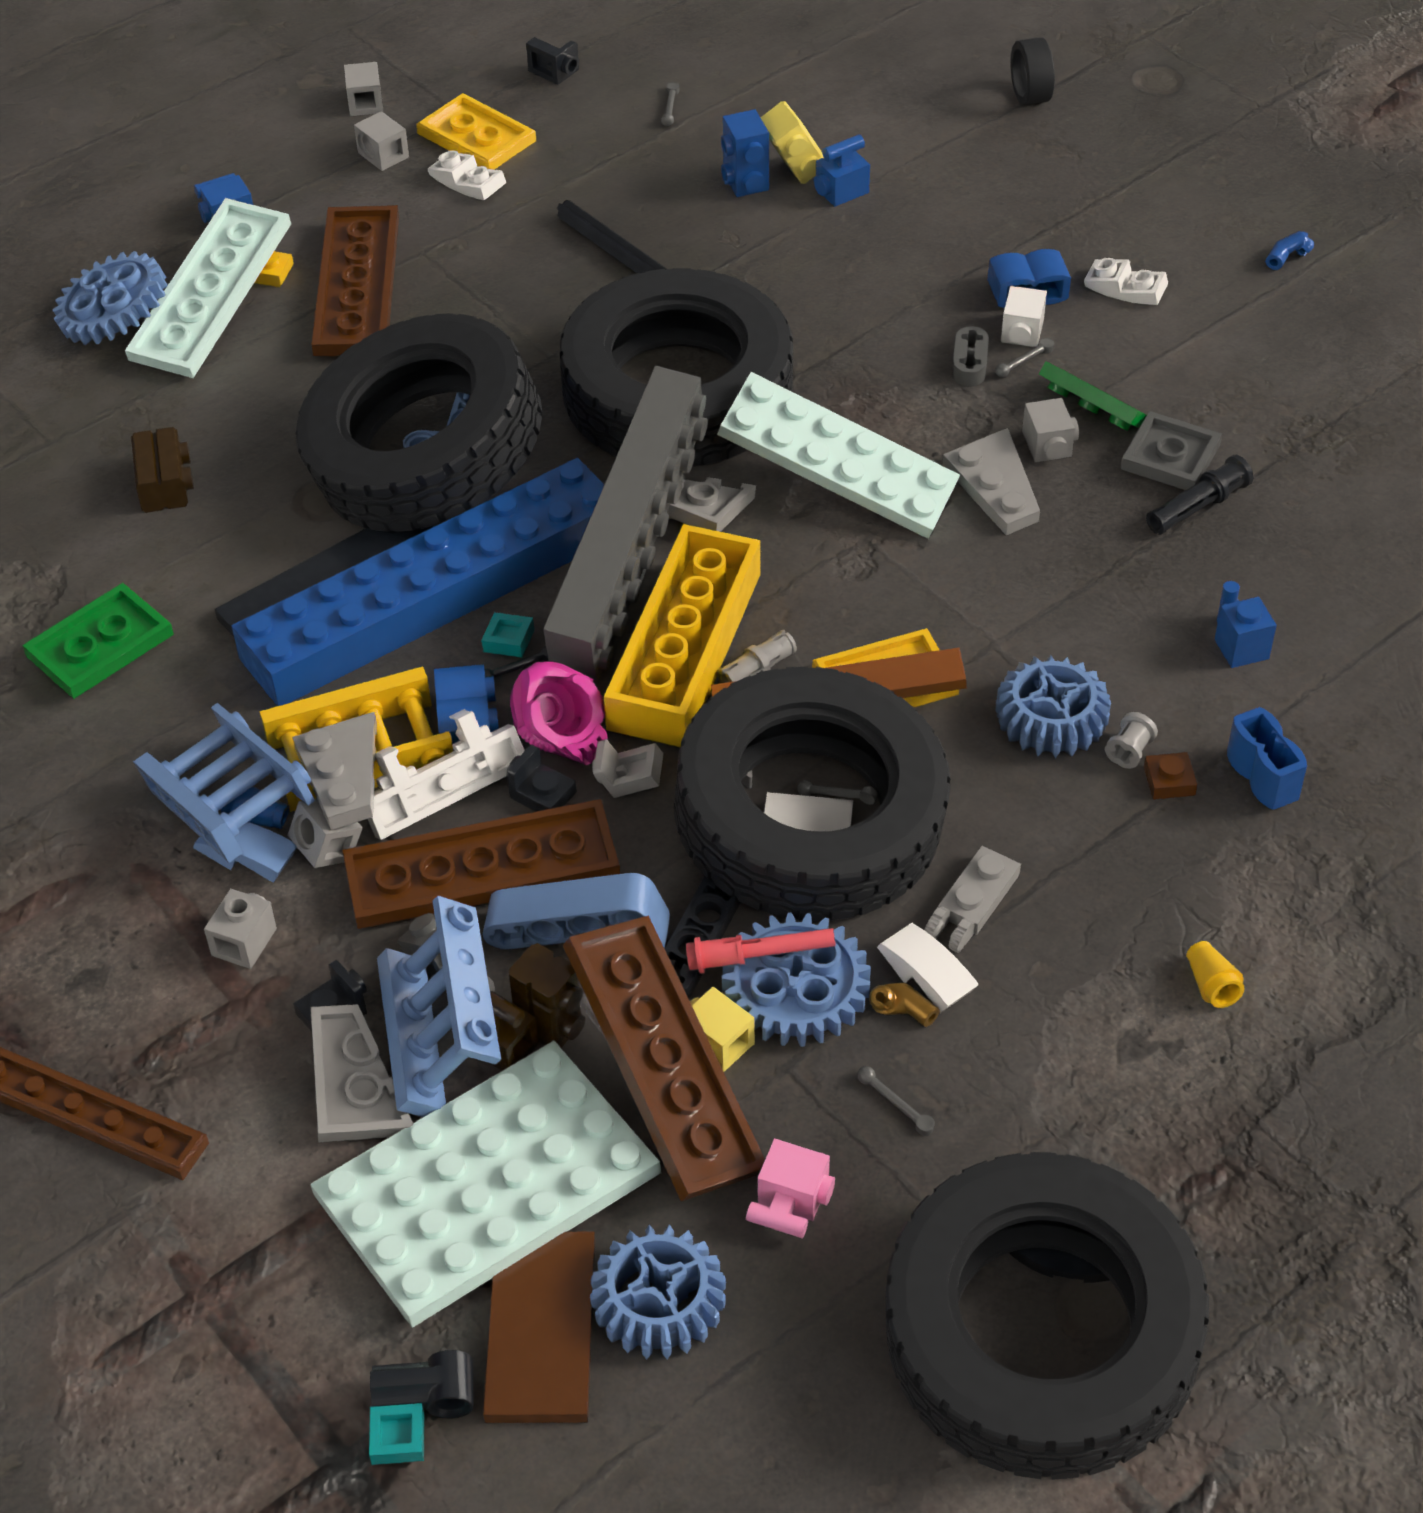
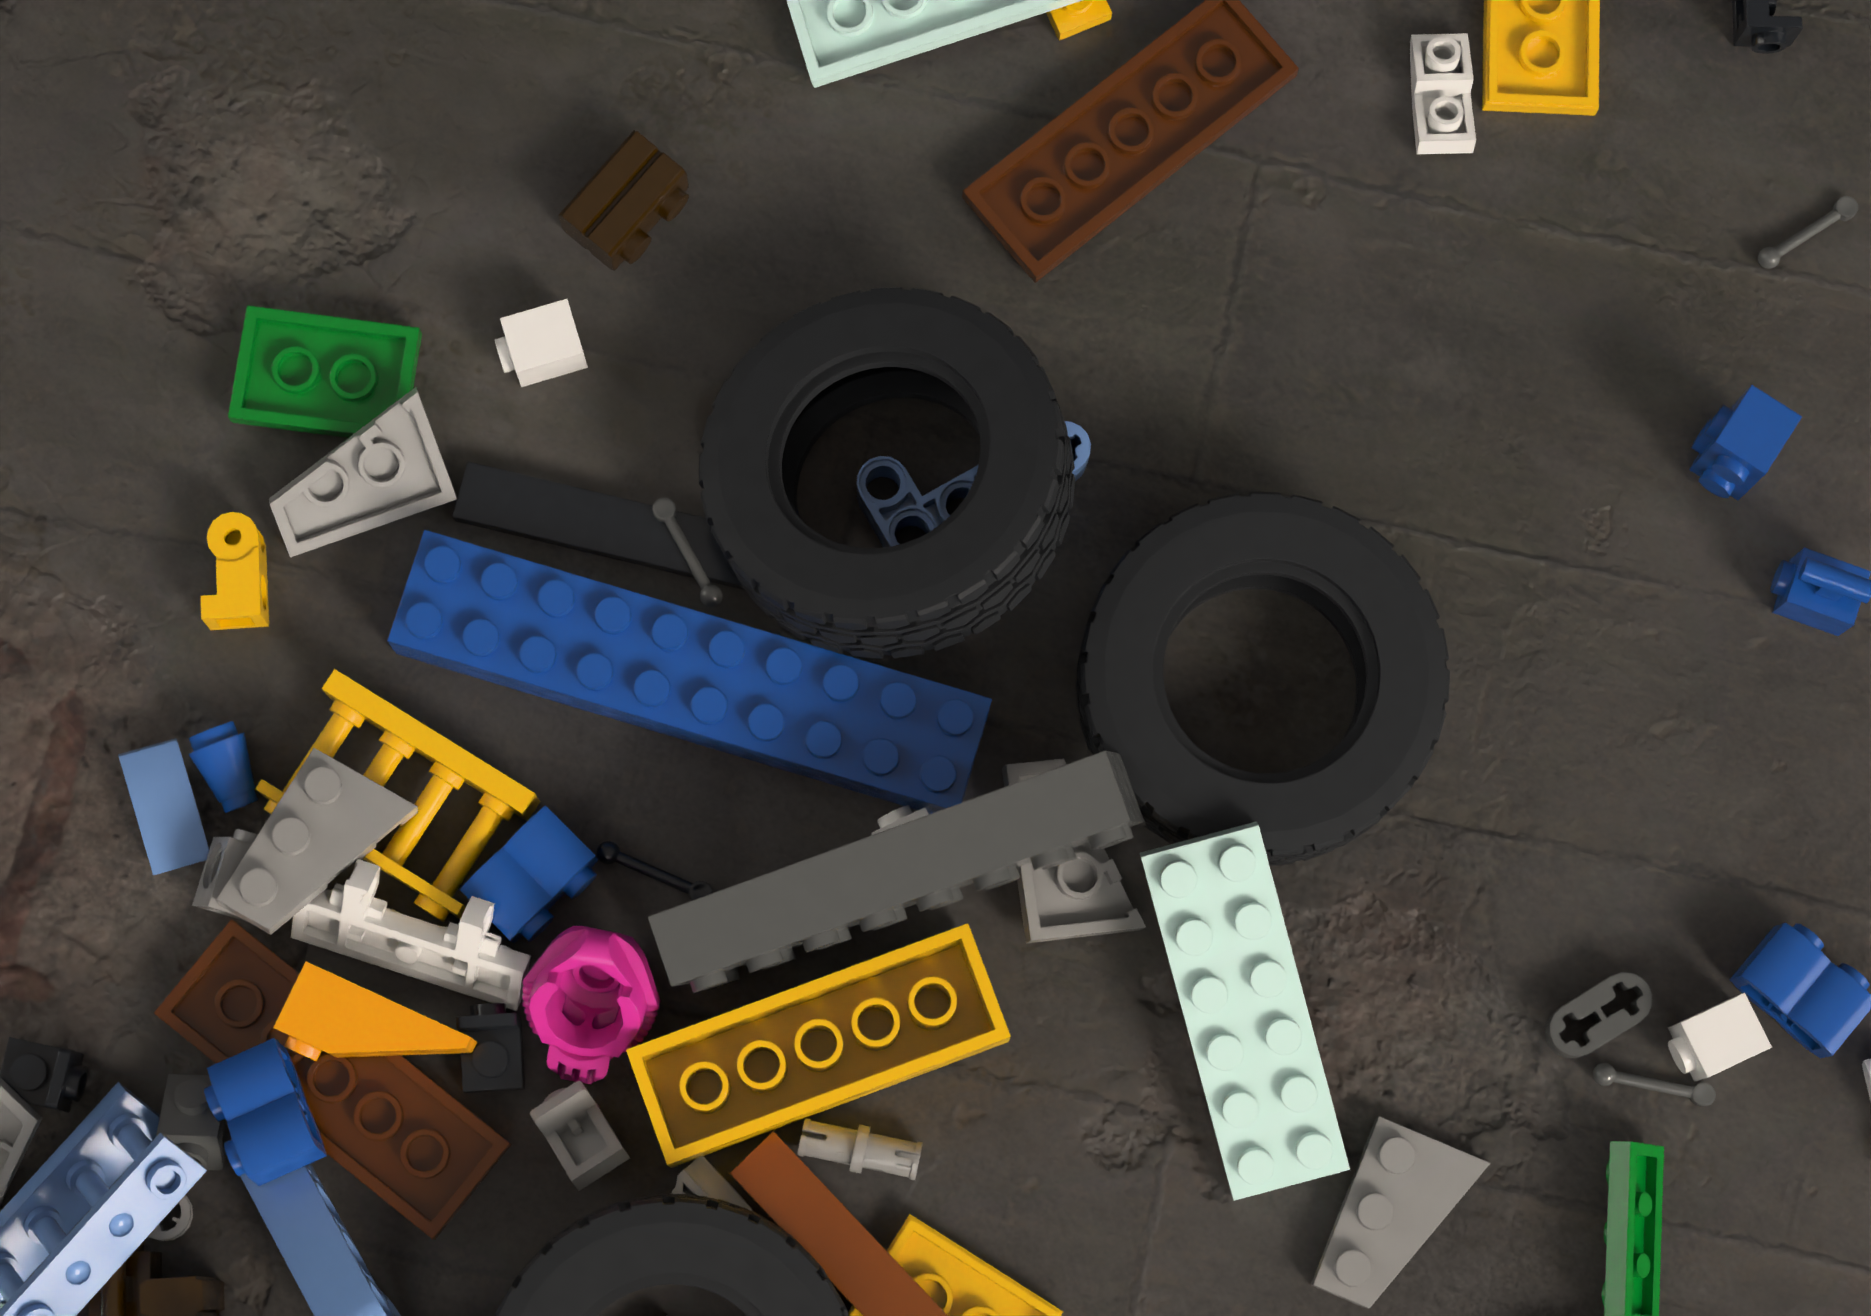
camera: 45 degrees right, 30 degrees up
(154, 733) = (239, 575): none -> yellow leg
(174, 648) = (366, 481): none -> light grey wing
(191, 540) = (541, 343): none -> white brick
(202, 811) = (162, 687): medium blue fence -> none
(240, 928) = (58, 899): light grey brick -> none
(334, 543) = (665, 511): none -> dark grey hinge
(464, 810) = (355, 1022): none -> light orange slope
(473, 876) = (264, 1113): none -> blue brick
(508, 634) = (679, 831): teal plate -> none
(606, 238) = (1452, 429): black axle -> none
(792, 141) = (1813, 491): light yellow brick -> none
(1049, 429) = (1521, 1224): light grey brick -> none

